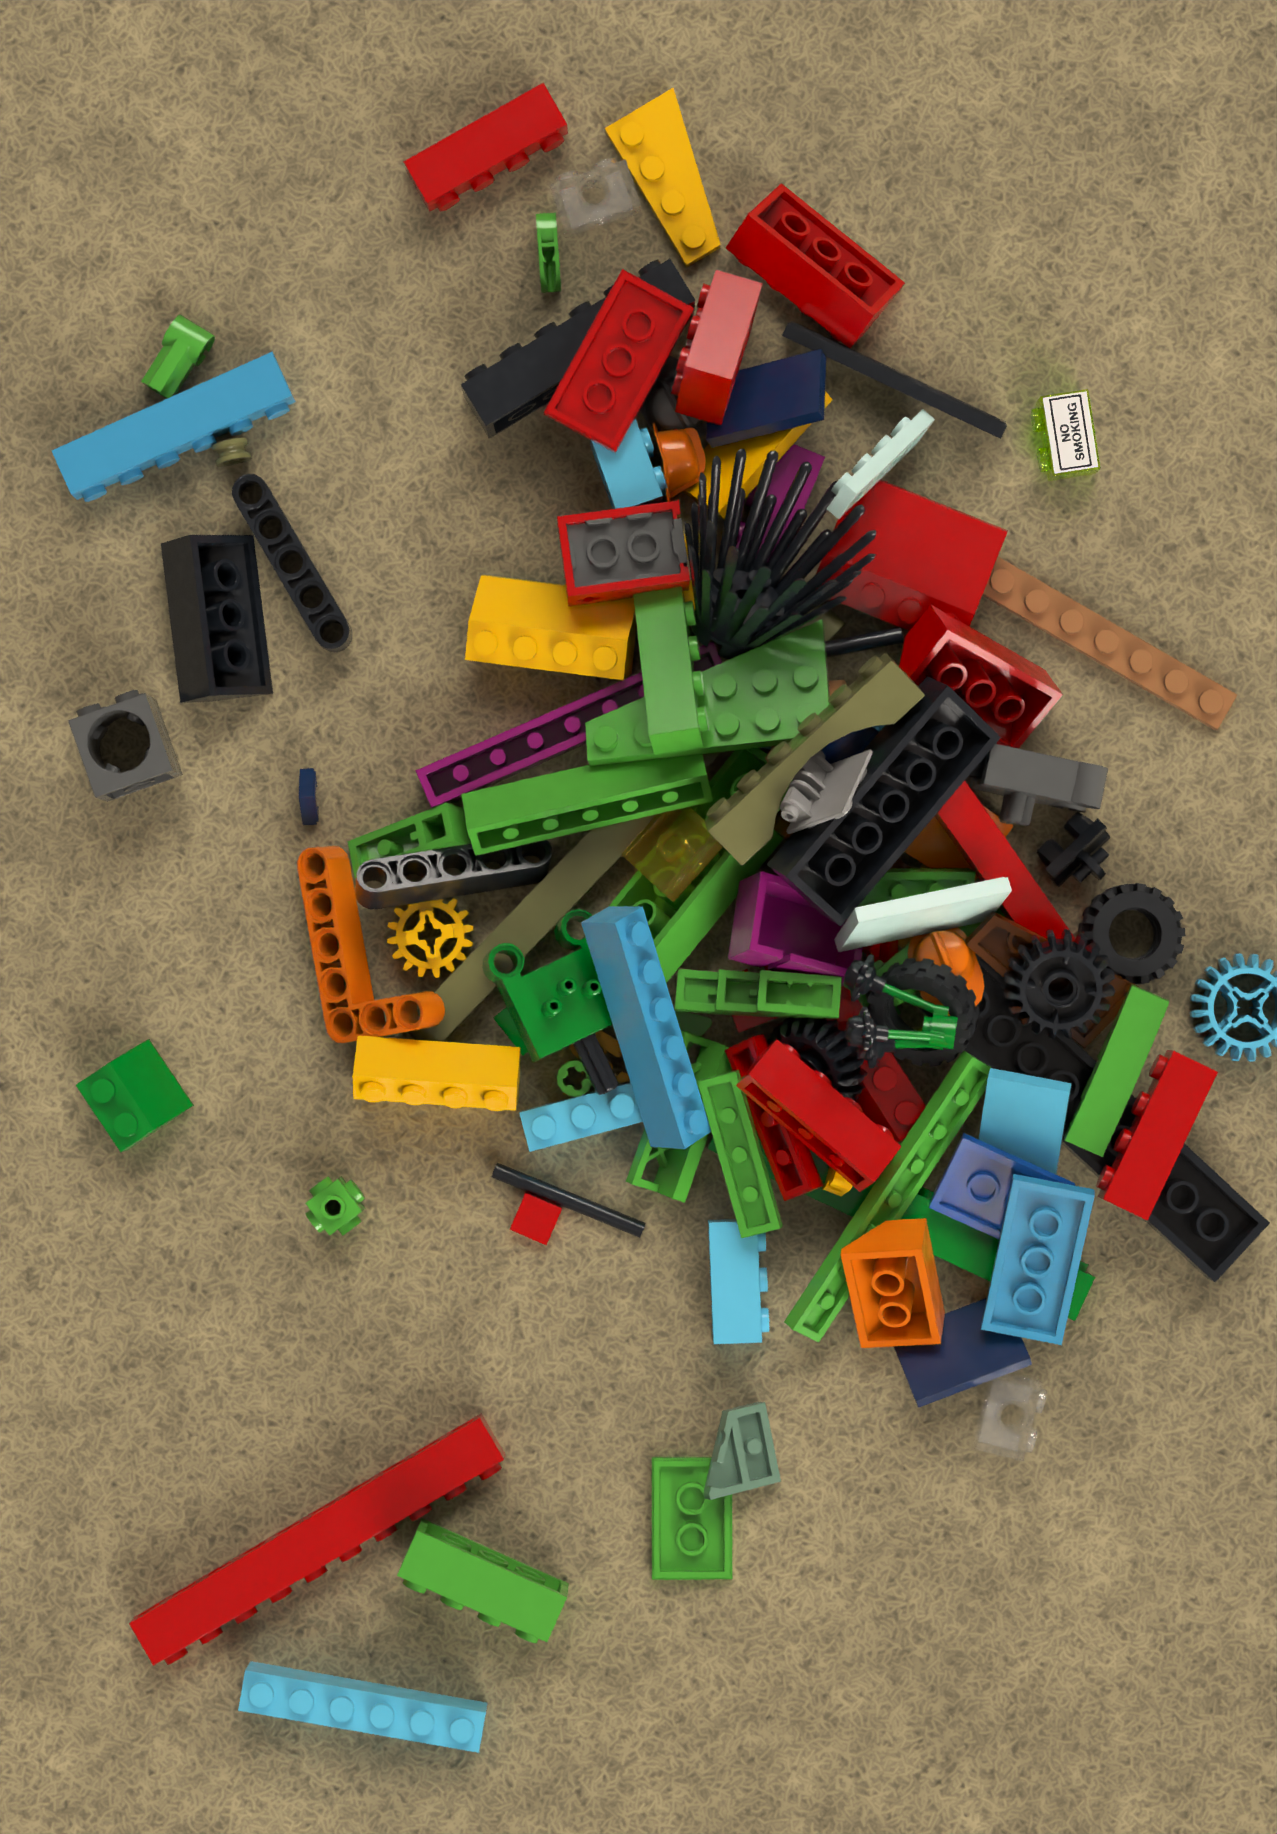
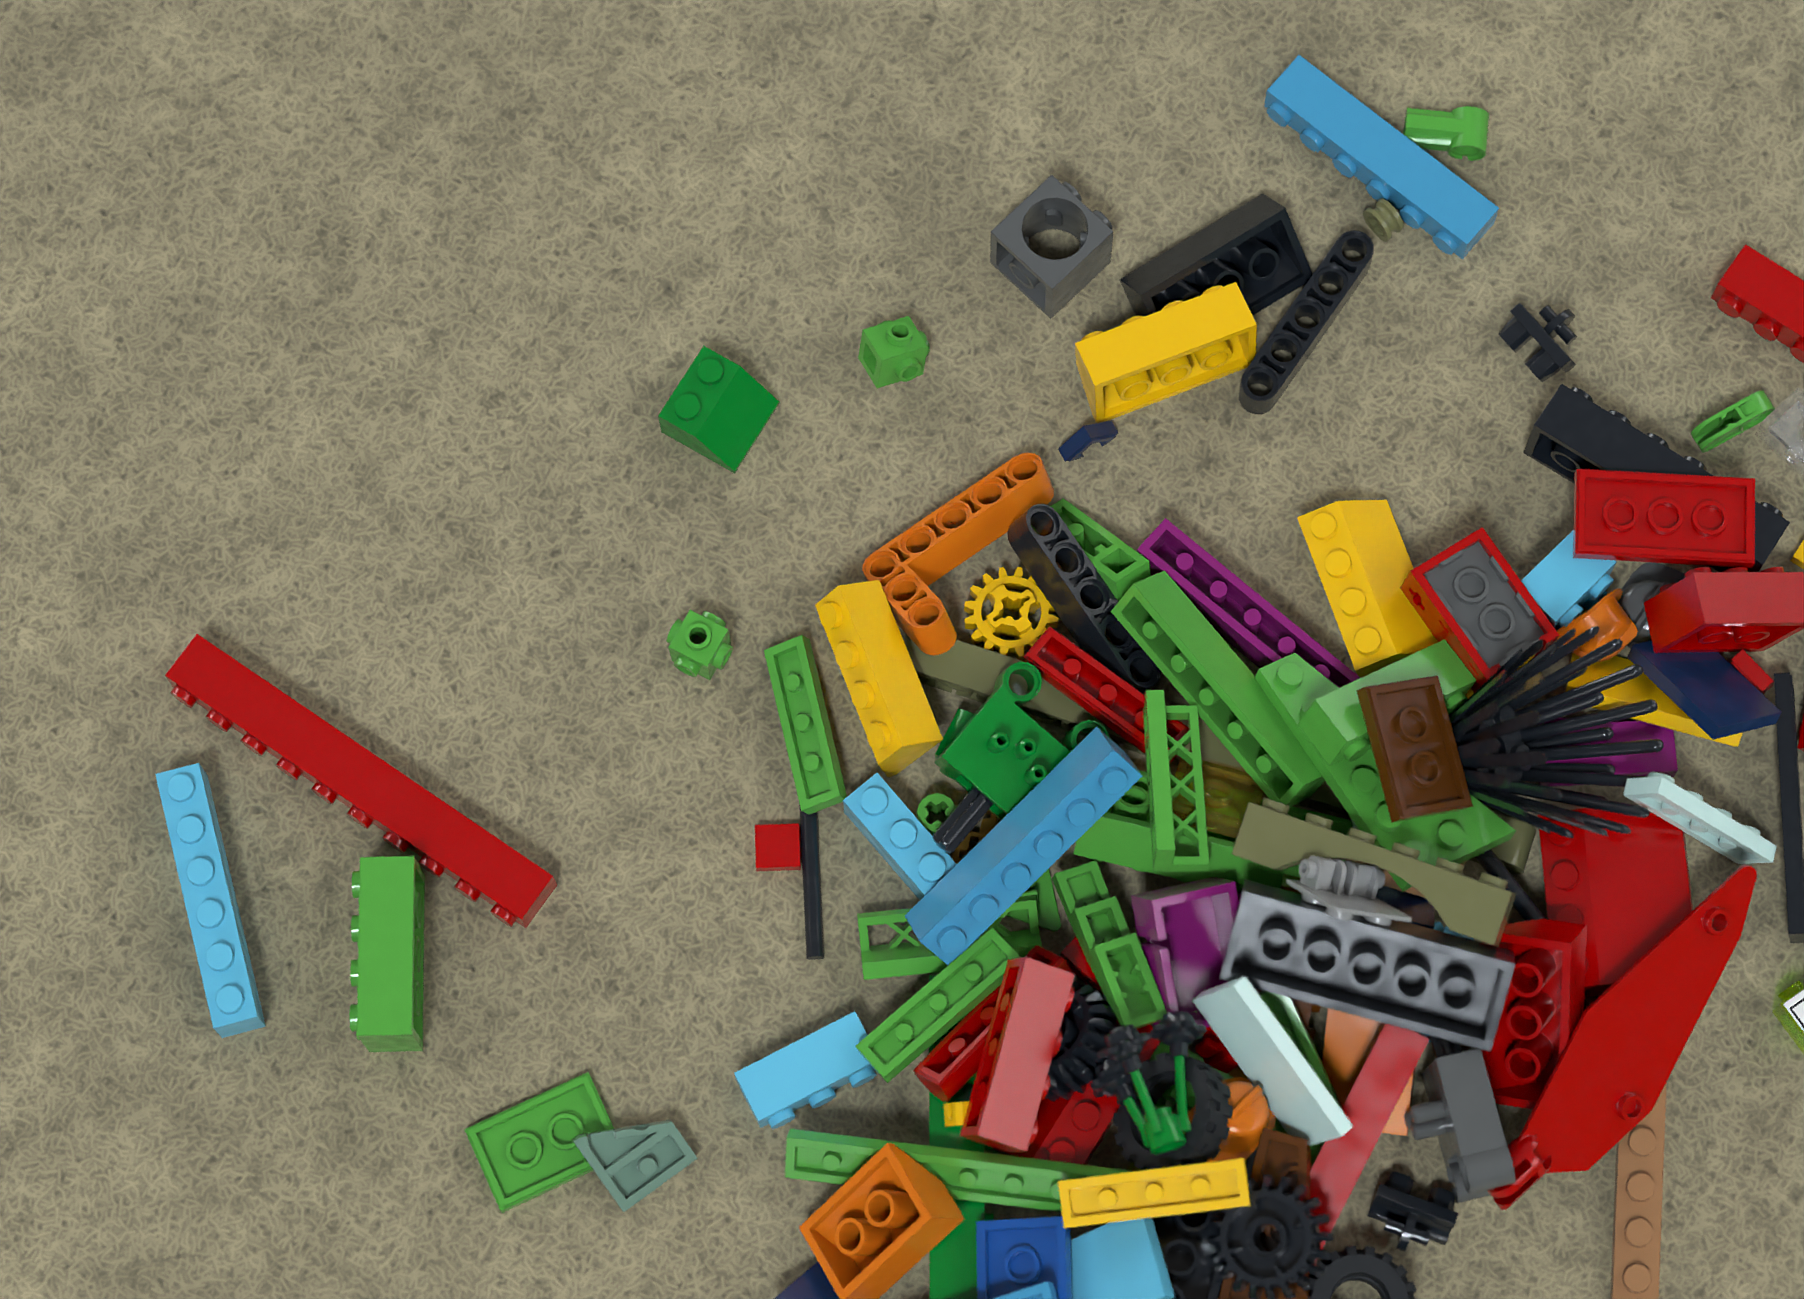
camera: 70 degrees right, 15 degrees down
(154, 924) = (893, 351): none -> bright green brick
(265, 696) = (1166, 352): none -> yellow slope
(384, 379) = (1551, 356): none -> black hips
(445, 1149) = (805, 724): none -> bright green plate
(546, 894) = (1094, 688): none -> red brick
(648, 892) = (1161, 780): none -> bright green fence
(724, 671) = (1414, 748): none -> reddish brown tile
(769, 351) = (1752, 671): none -> red tile
(984, 1061) = (1154, 1192): none -> yellow plate
(1032, 615) = (1628, 1043): none -> red wing

